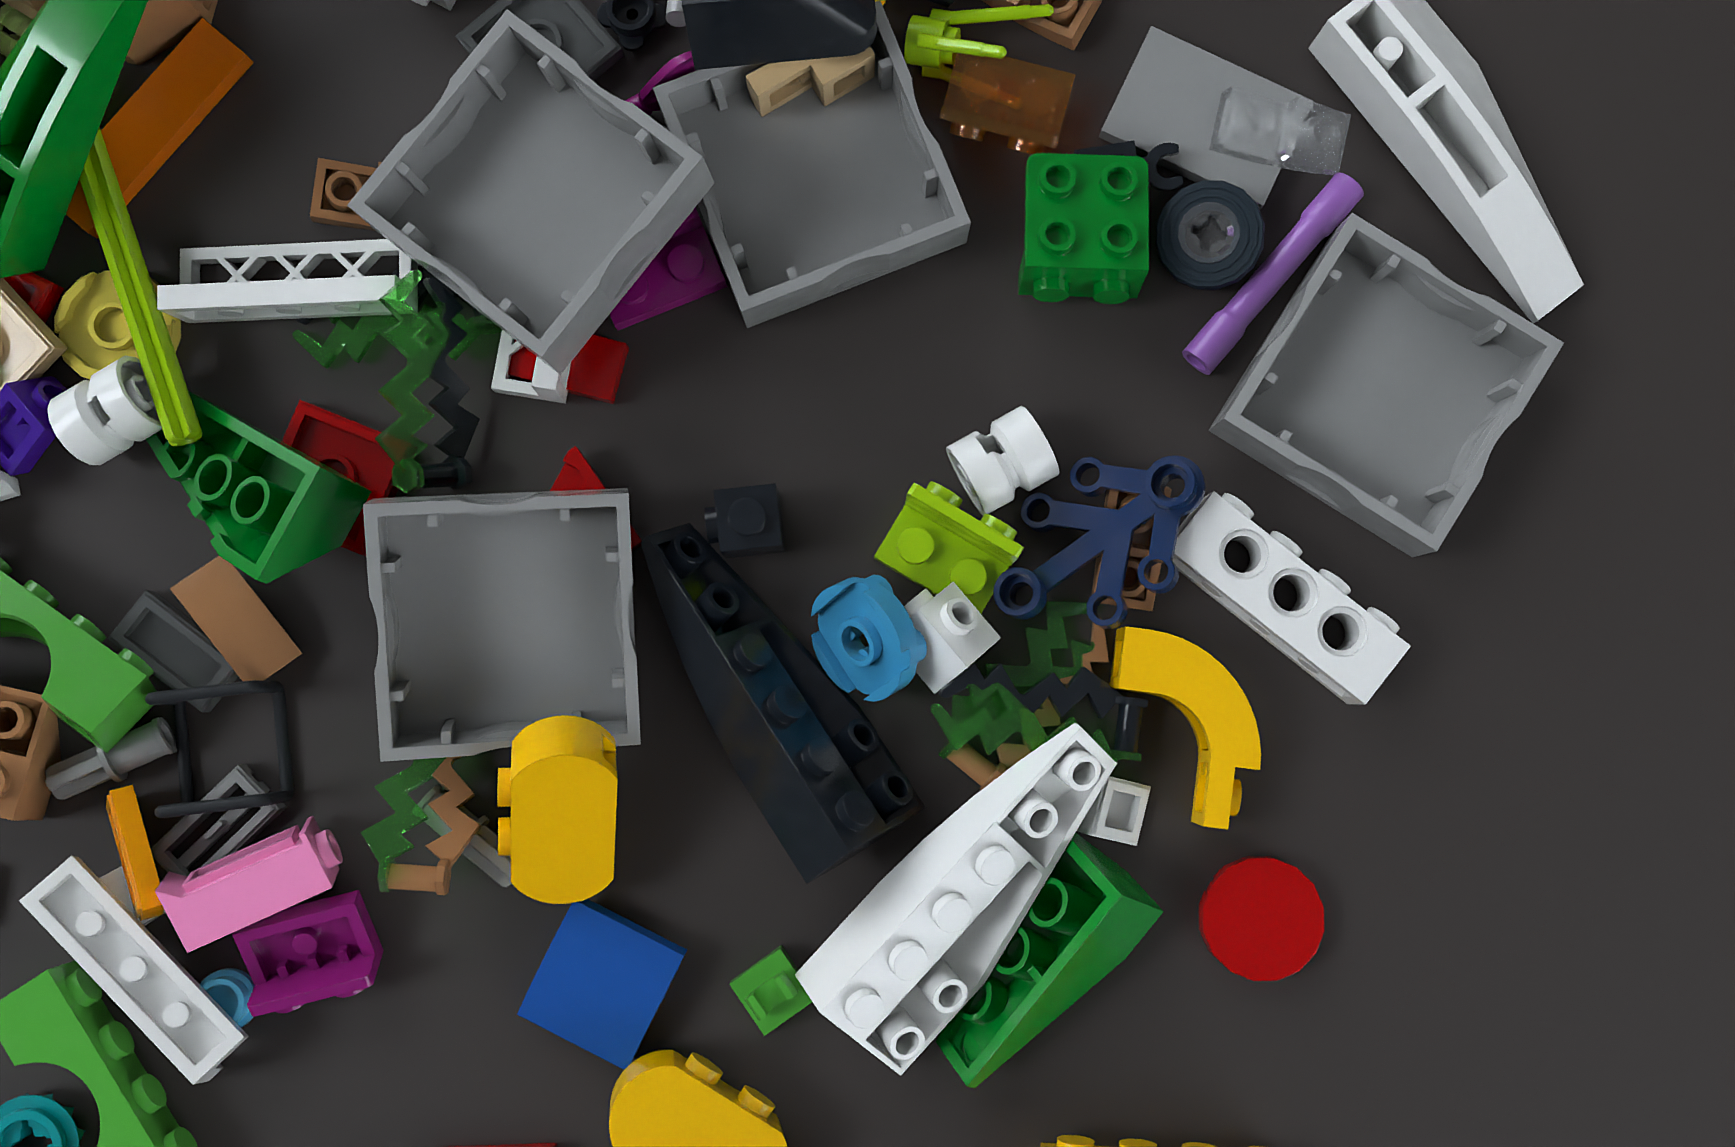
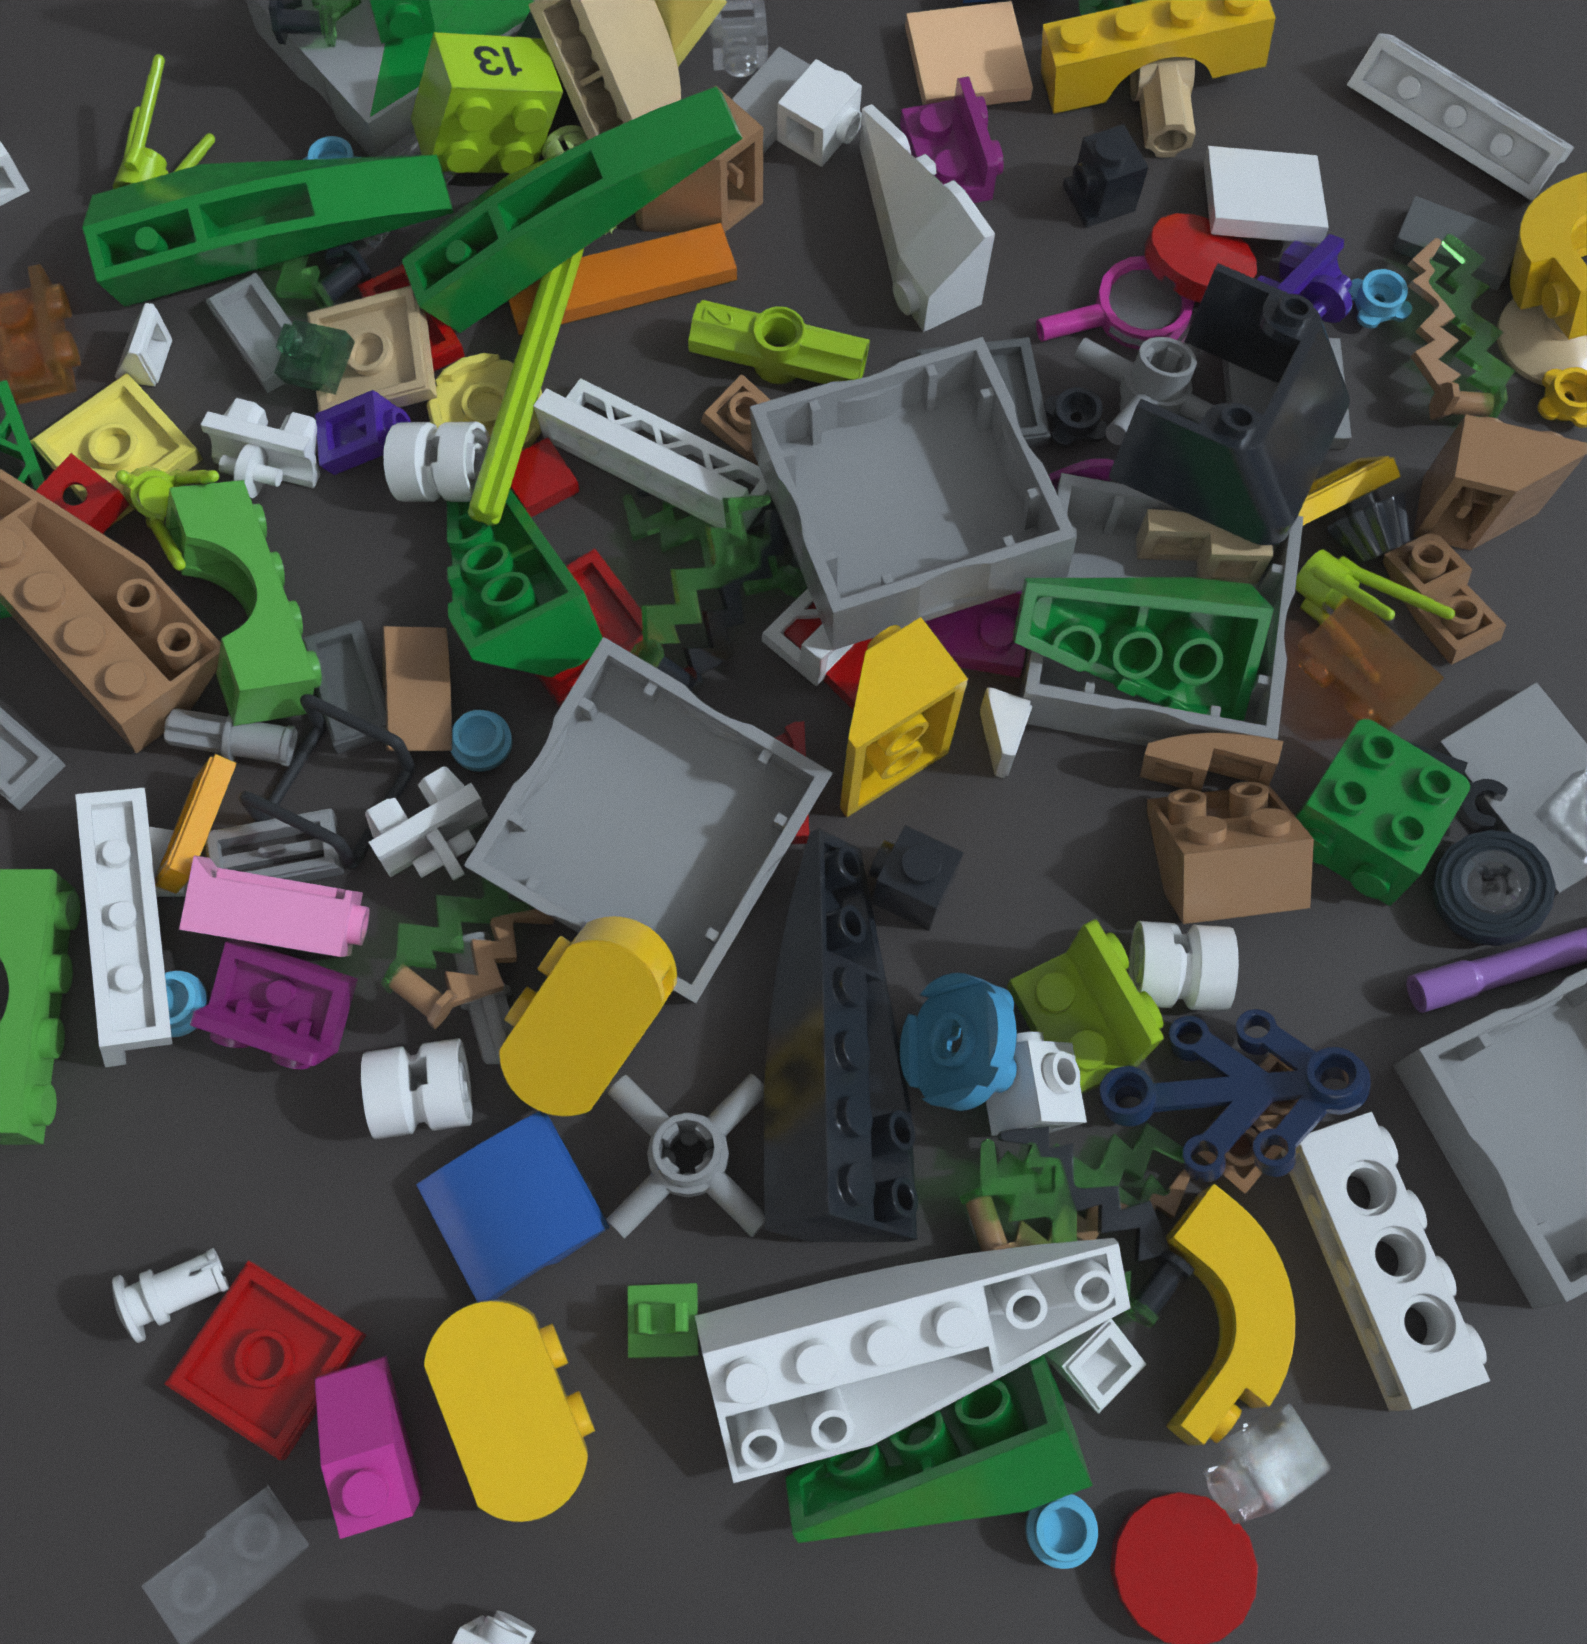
camera: 30 degrees right, 15 degrees down
(210, 363) = (542, 478): none -> red tile
(297, 120) = (749, 337): none -> lime piece
(316, 755) = (433, 835): none -> white hips
(320, 628) = (481, 740): none -> medium azure plate
(456, 953) = (416, 1088): none -> white wheel
(648, 402) = (901, 712): none -> yellow slope
(690, 870) = (689, 1129): none -> light grey bar
(742, 342) = (1003, 724): none -> white slope
(824, 188) = (1152, 637): none -> green wedge
(908, 277) = (1187, 758): none -> medium nougat slope
(986, 338) = (1230, 853): none -> medium nougat slope
(1161, 951) = (1062, 1532): none -> medium azure plate
(1279, 812) = (1264, 1465): none -> clear brick

